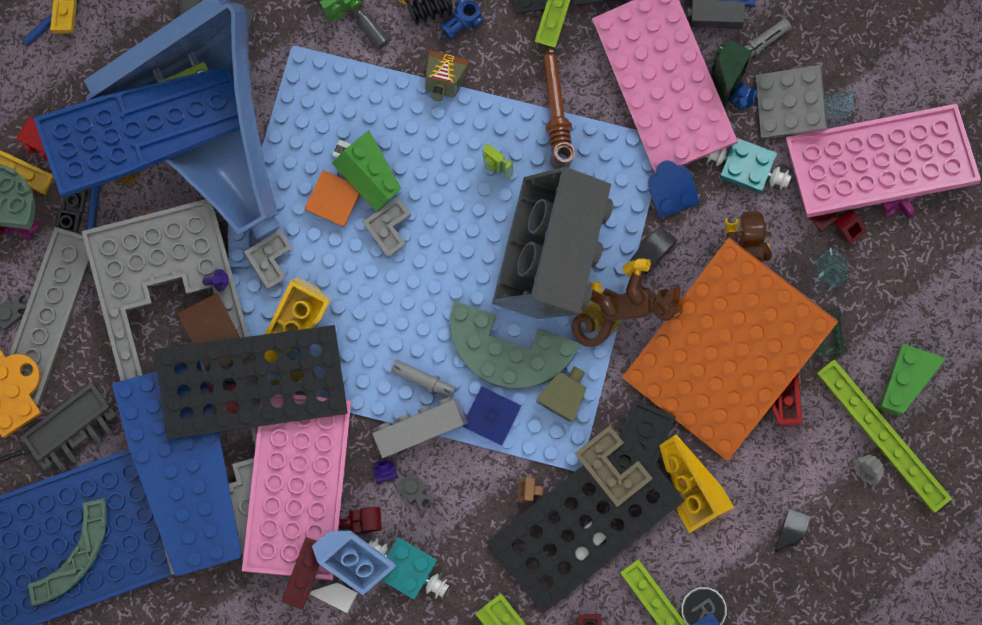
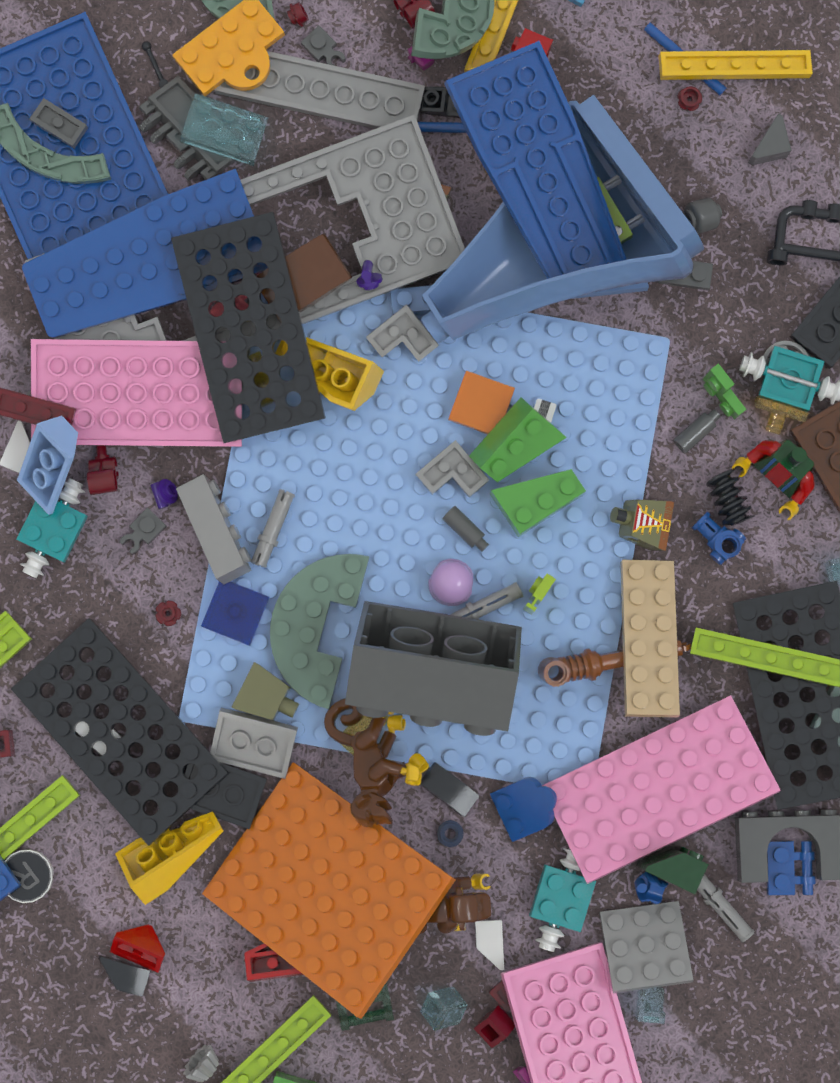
camera: 75 degrees right, 5 degrees up
(51, 539) = (58, 123): none -> dark grey plate
(73, 398) = (224, 129): none -> clear light blue plate
(91, 7) = (692, 92): none -> dark red plate
(419, 159) = (537, 499): none -> bright green wedge
(437, 219) = (465, 528): none -> dark grey cylinder
(481, 234) = (451, 582): none -> lavender helmet
(492, 479) = (175, 613): none -> dark red plate
(495, 188) = (512, 593): none -> light grey pin
(527, 490) = (152, 661): medium nougat tile -> none
(541, 77) = (649, 639): none -> tan plate
(595, 460) = (157, 762): dark tan plate -> none
(603, 404) = (253, 742): none -> light grey plate
(689, 246) = (458, 833): none -> dark blue plate
(769, 516) = (140, 947): none -> red slope
(781, 226) = (490, 941): none -> white tile

